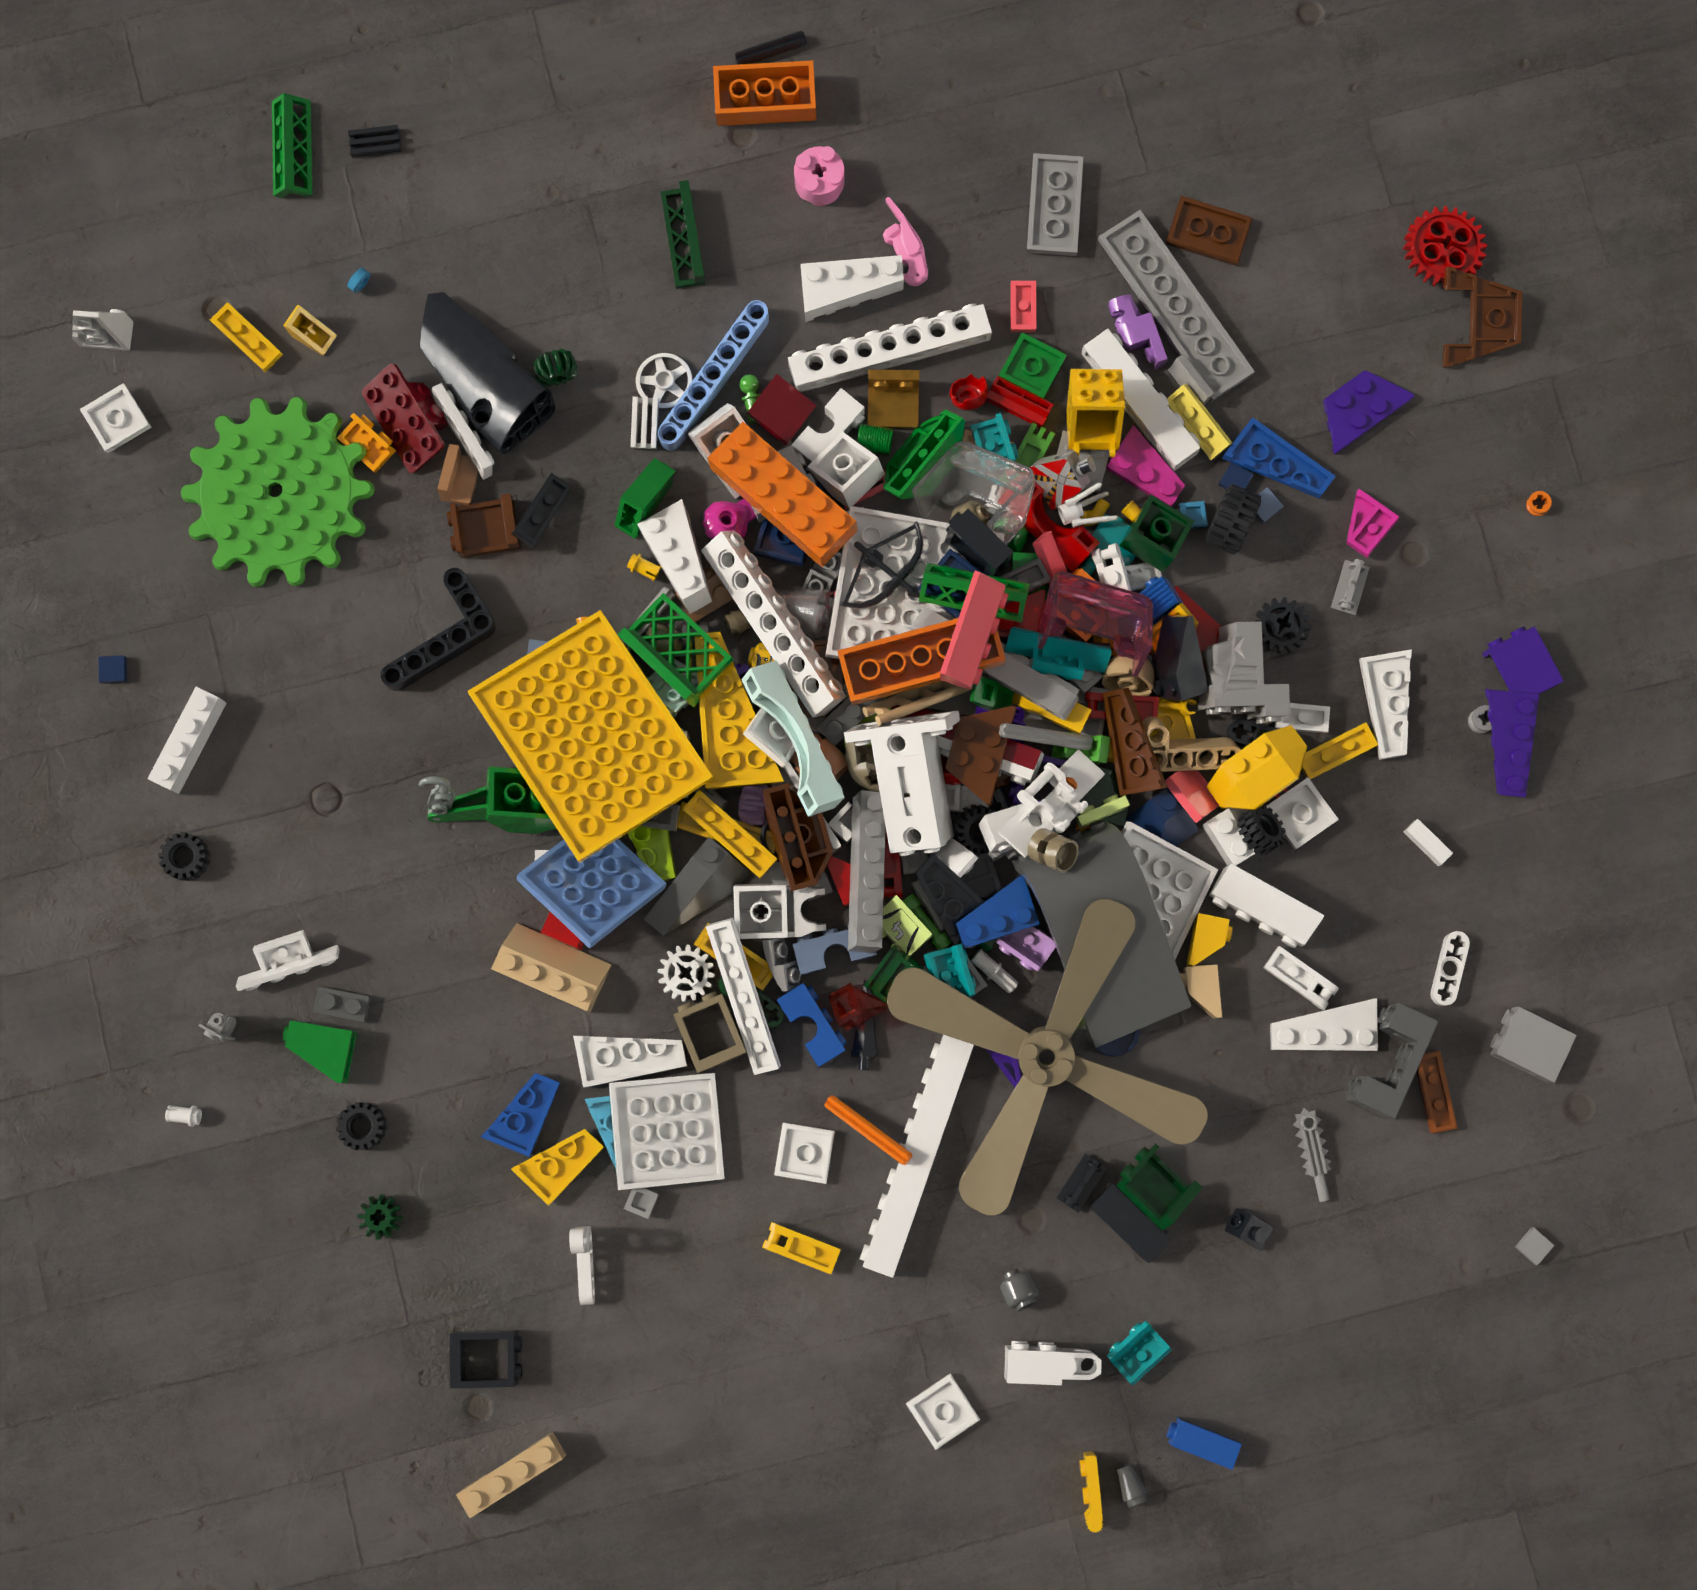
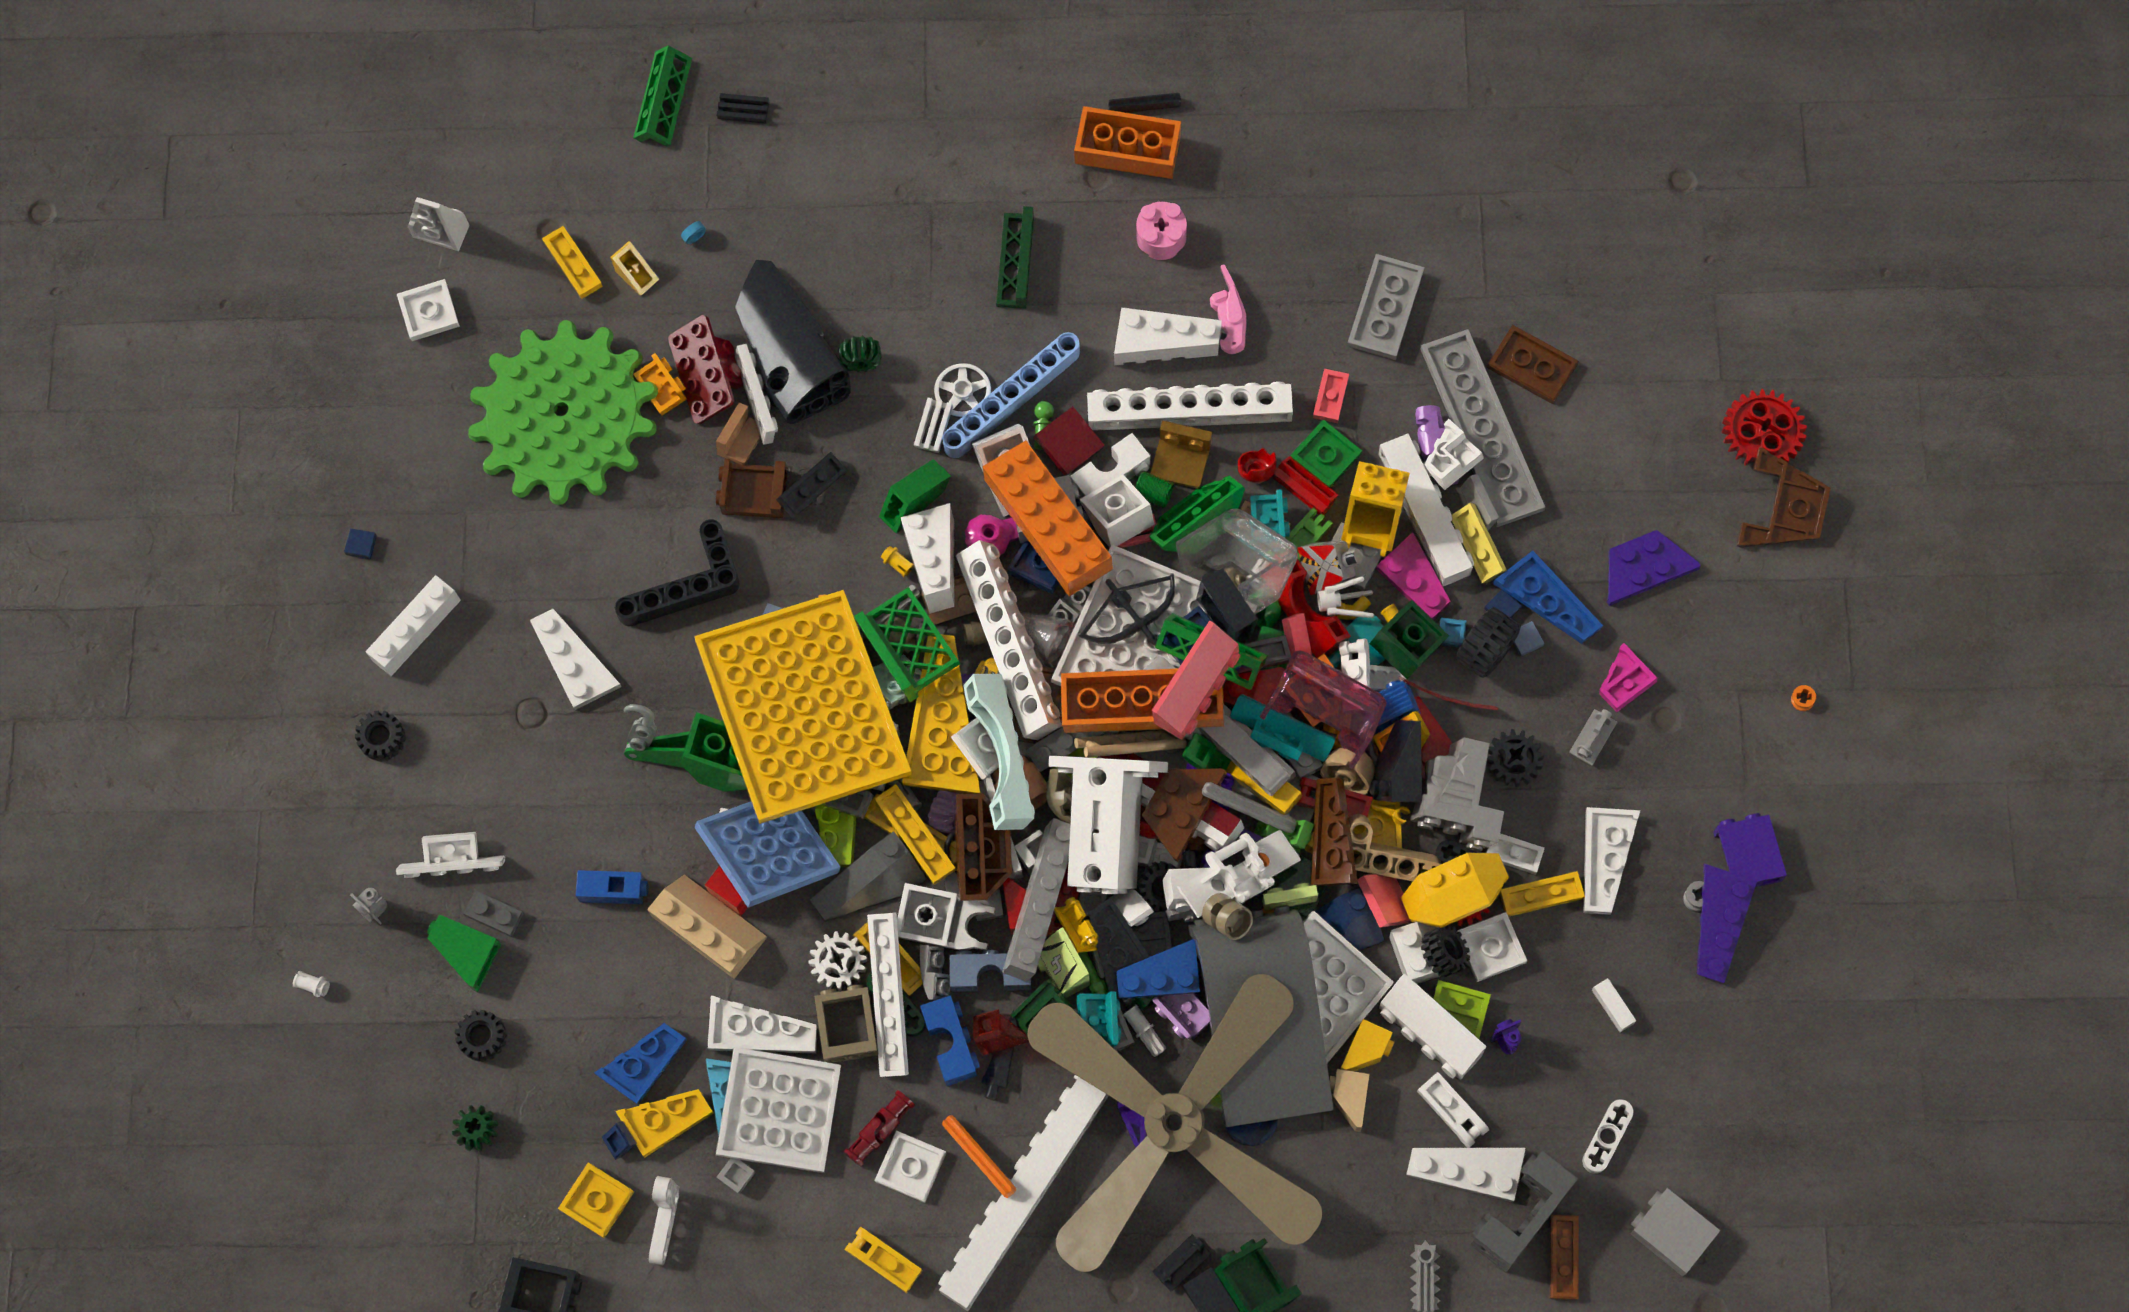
camera: 15 degrees right, 10 degrees down
(357, 742) = (575, 665): none -> white wing
(449, 953) = (611, 887): none -> blue brick
(514, 1257) = (596, 1200): none -> yellow plate
(521, 1195) = (619, 1140): none -> dark blue tile
(764, 1129) = (868, 1139): none -> dark red piece
(911, 894) = (1079, 932): none -> yellow hinge
(1156, 341) = (1452, 456): none -> white slope
(1207, 582) = (1450, 699): none -> red sticker
(1288, 876) = (1463, 1004): none -> lime wing
(1339, 897) = (1507, 1036): none -> dark purple hinge

